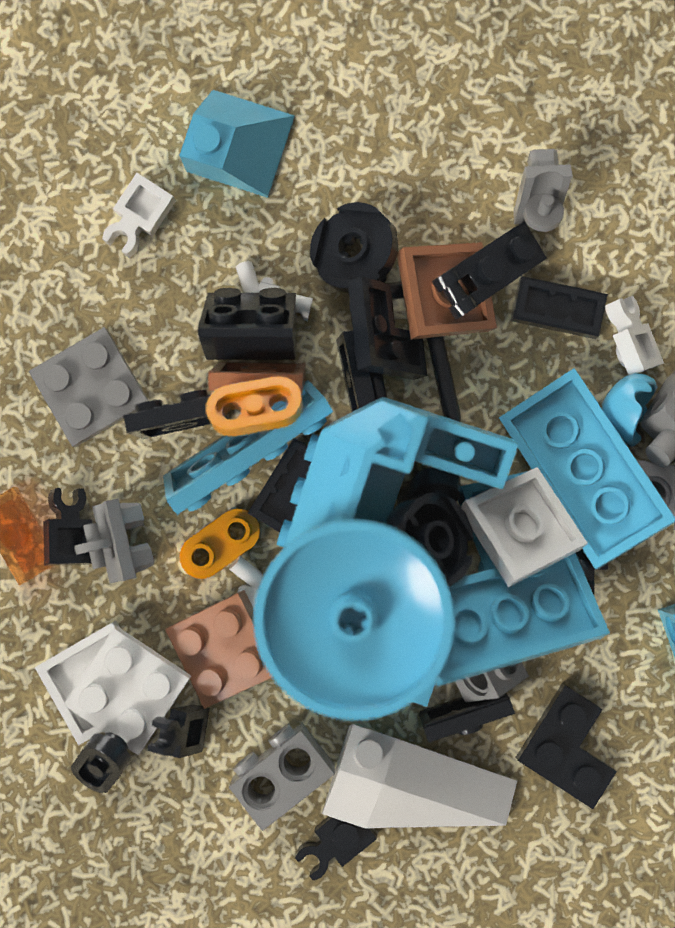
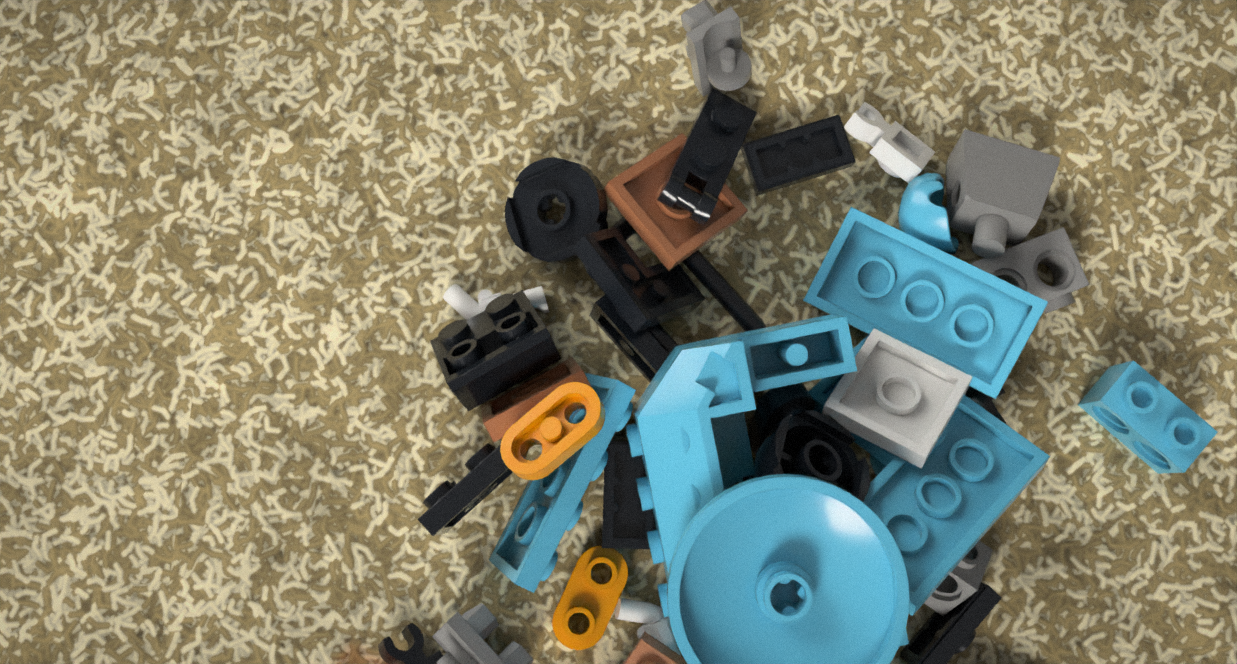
camera: 35 degrees left, 5 degrees down
(88, 387) = (358, 511): light grey plate -> none
(142, 209) = (310, 292): white plate -> none
(236, 142) = (372, 170): medium azure slope -> none
(556, 752) = (1060, 609): black plate -> none

